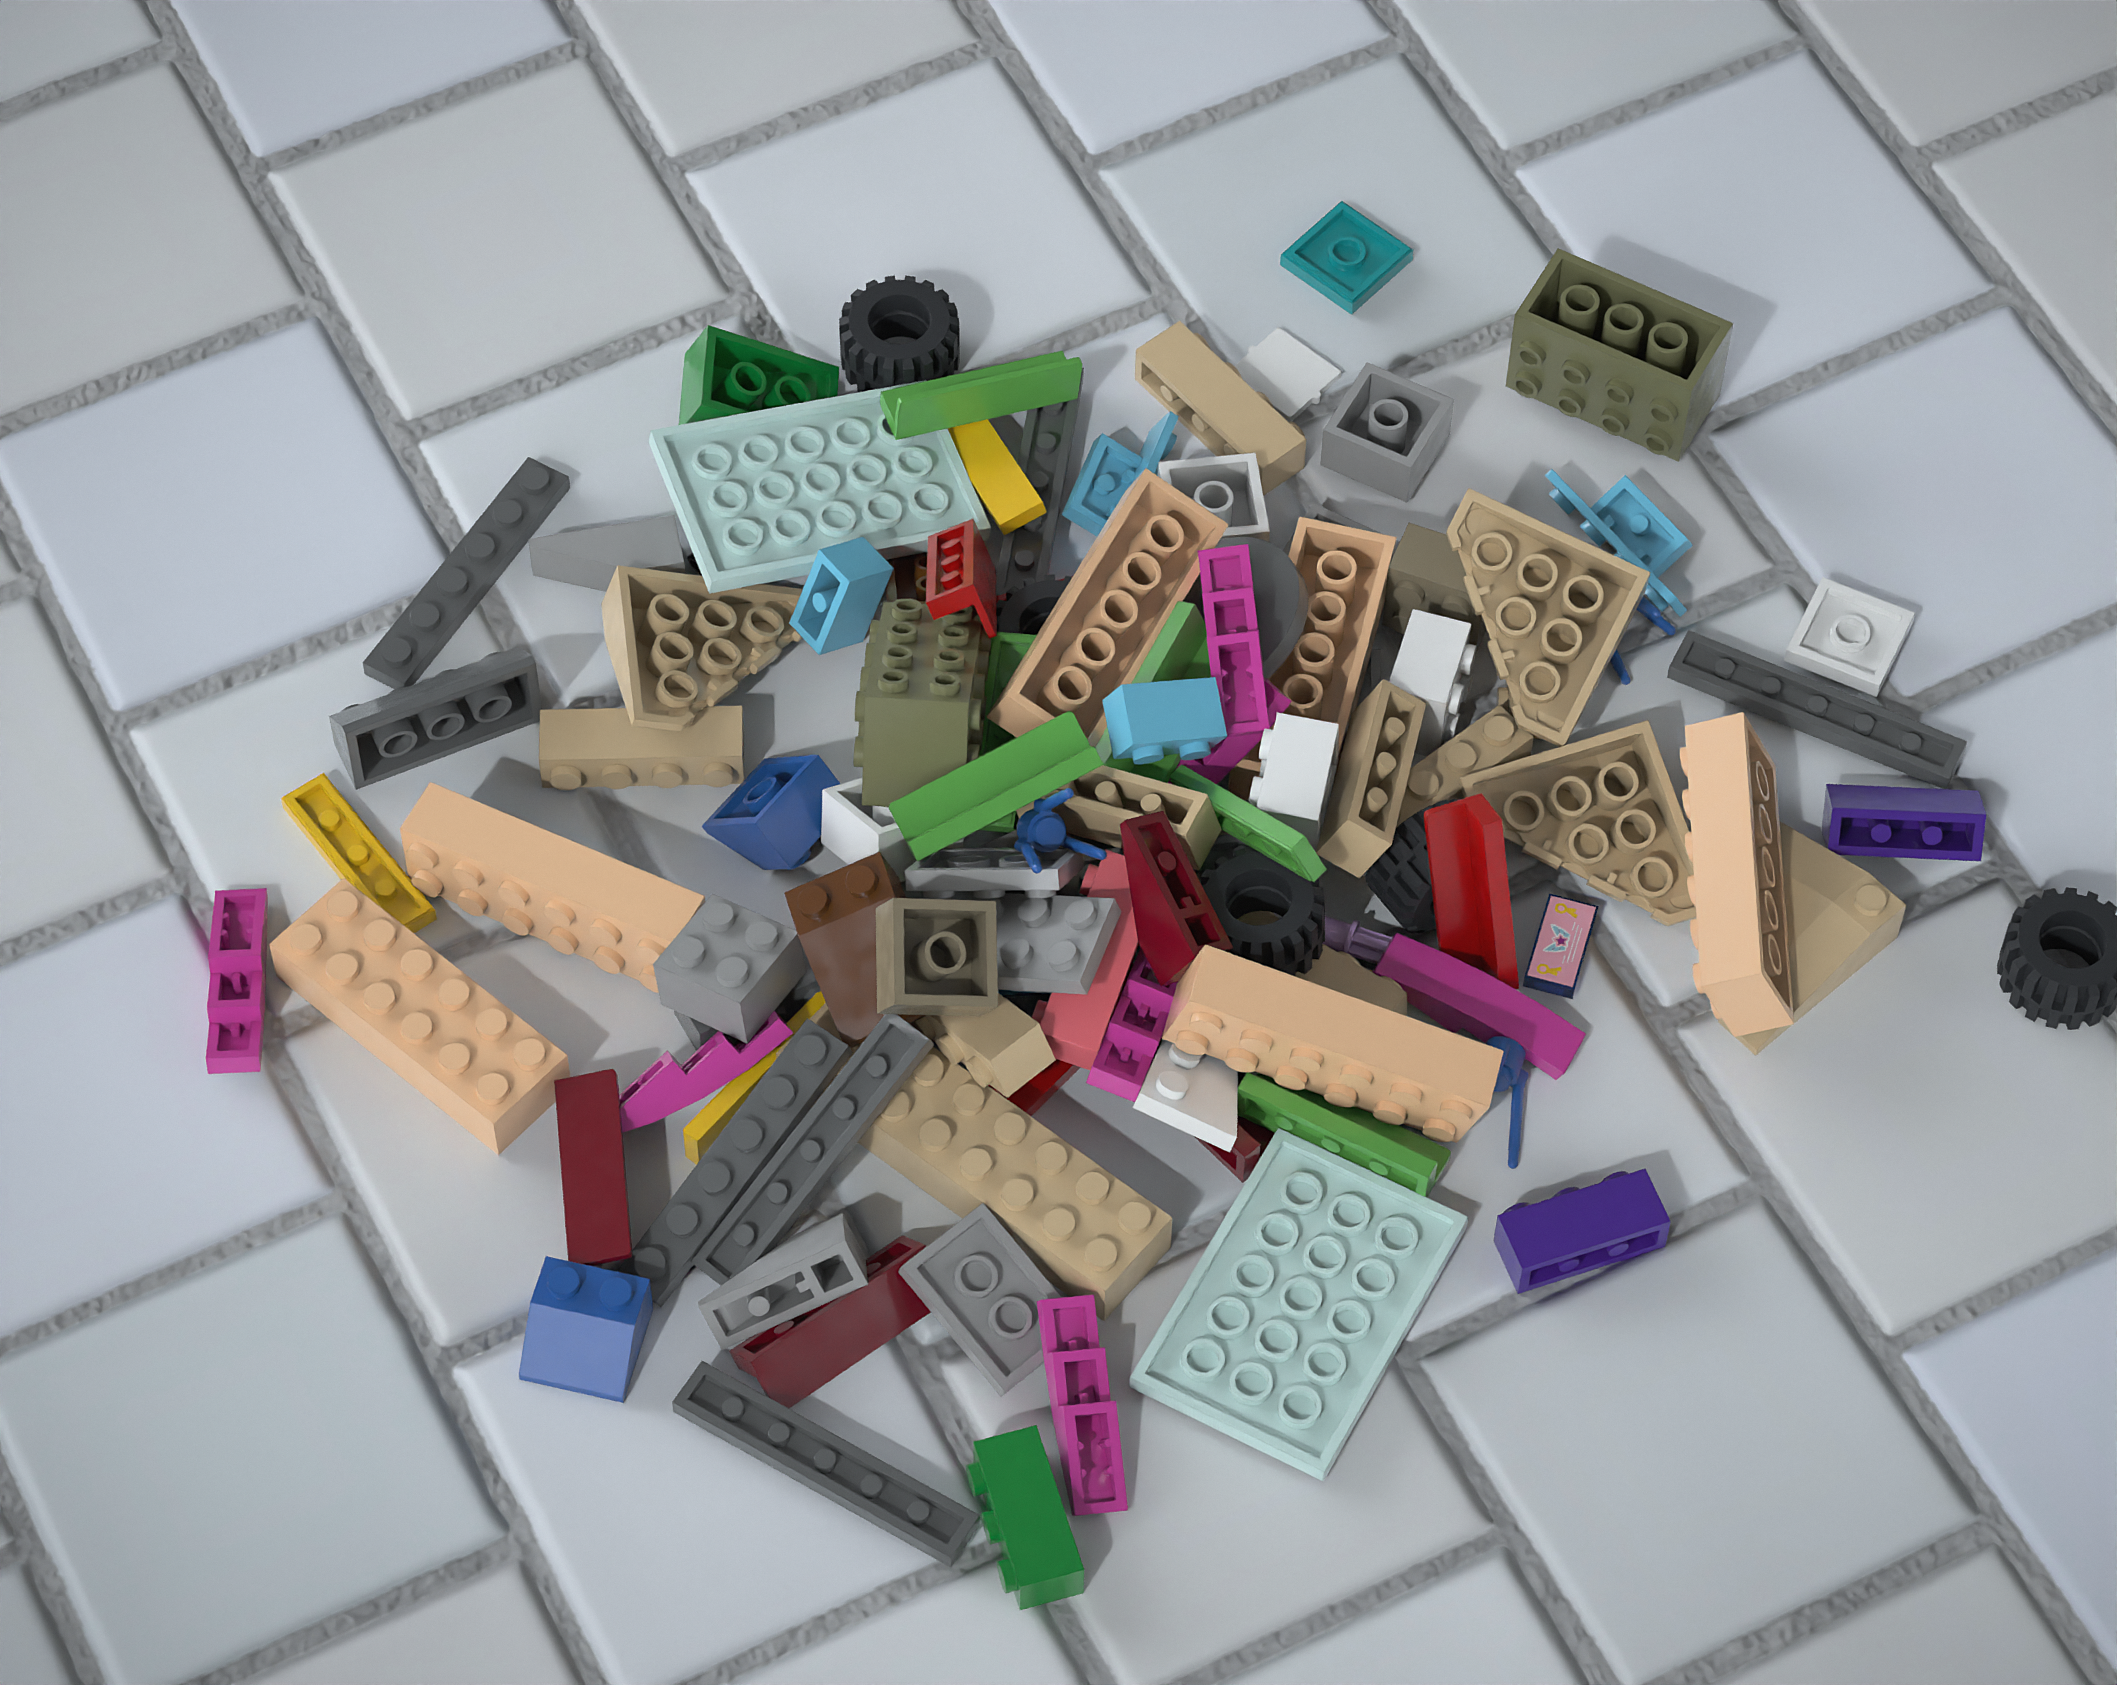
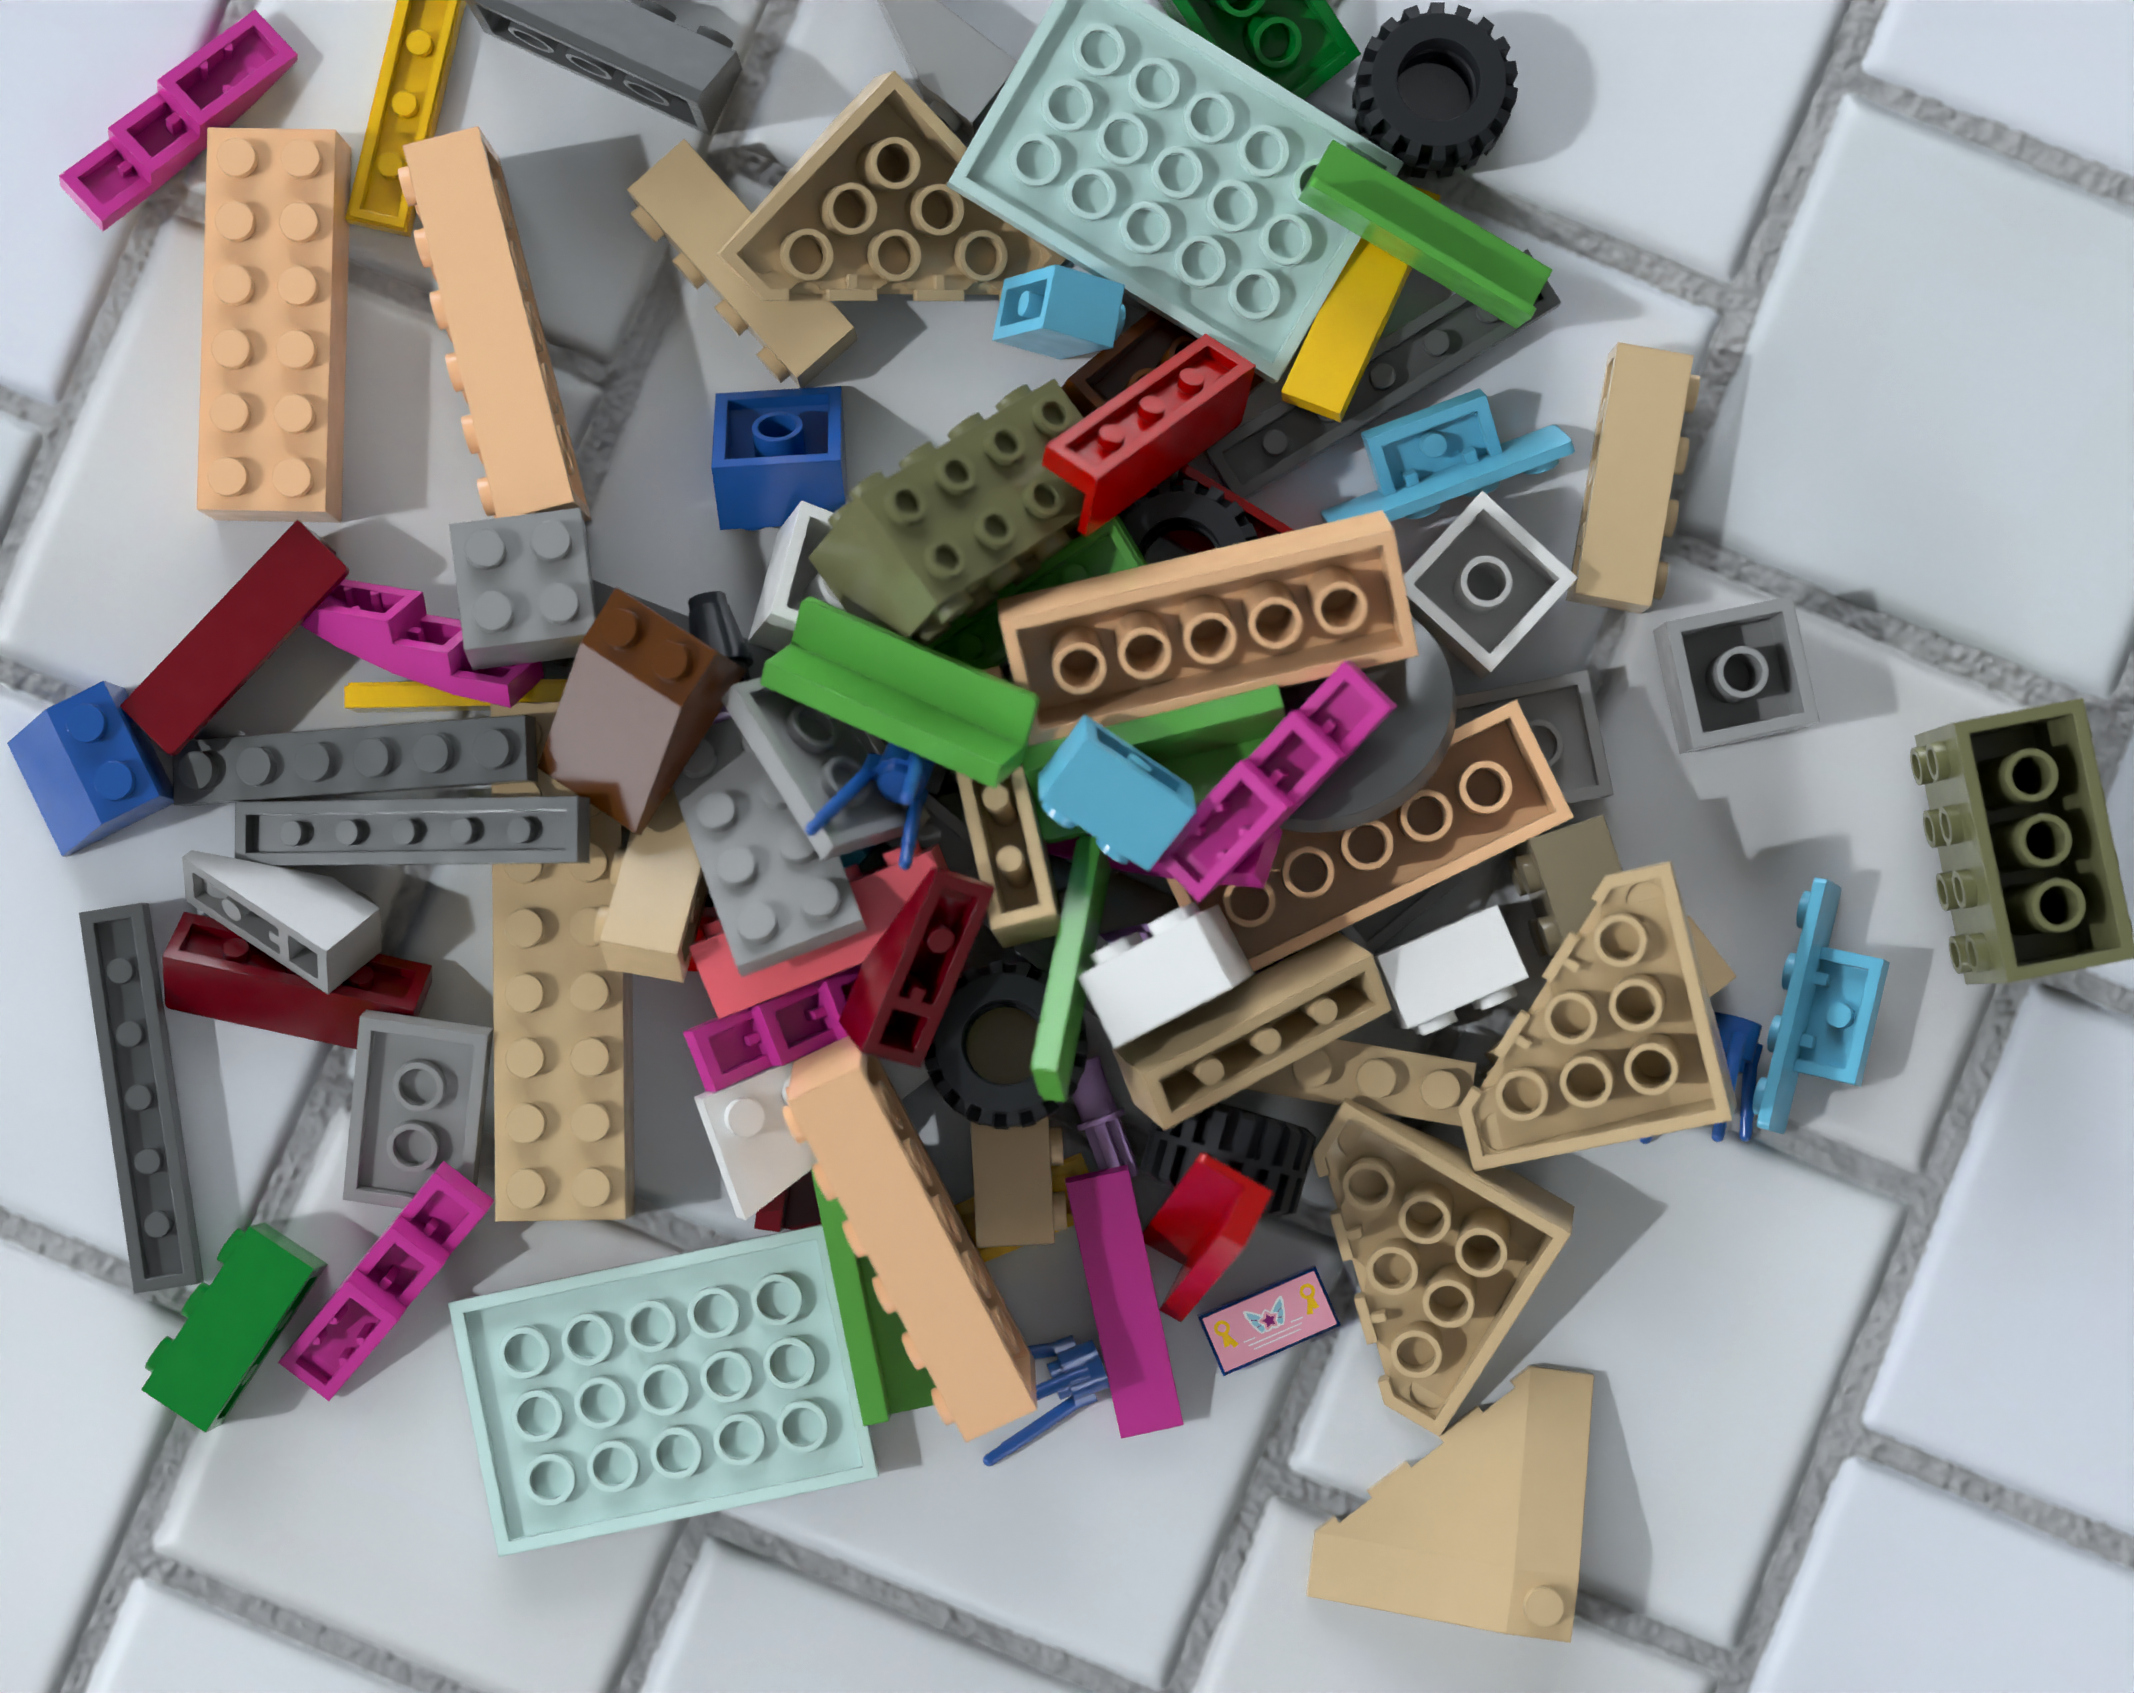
camera: 50 degrees right, 30 degrees up
(936, 957) = (642, 810): dark tan brick -> none
(1287, 373) = (1739, 500): white piece -> none
(1346, 257) = (1946, 441): teal tile -> none
(1581, 1230) = (956, 1590): dark purple brick -> none
(1736, 875) = (1461, 1456): light nougat brick -> none
(1817, 709) = (1761, 1360): dark grey plate -> none
(1849, 636) = (1881, 1325): white plate -> none
(1903, 822) = (1683, 1555): dark purple brick -> none

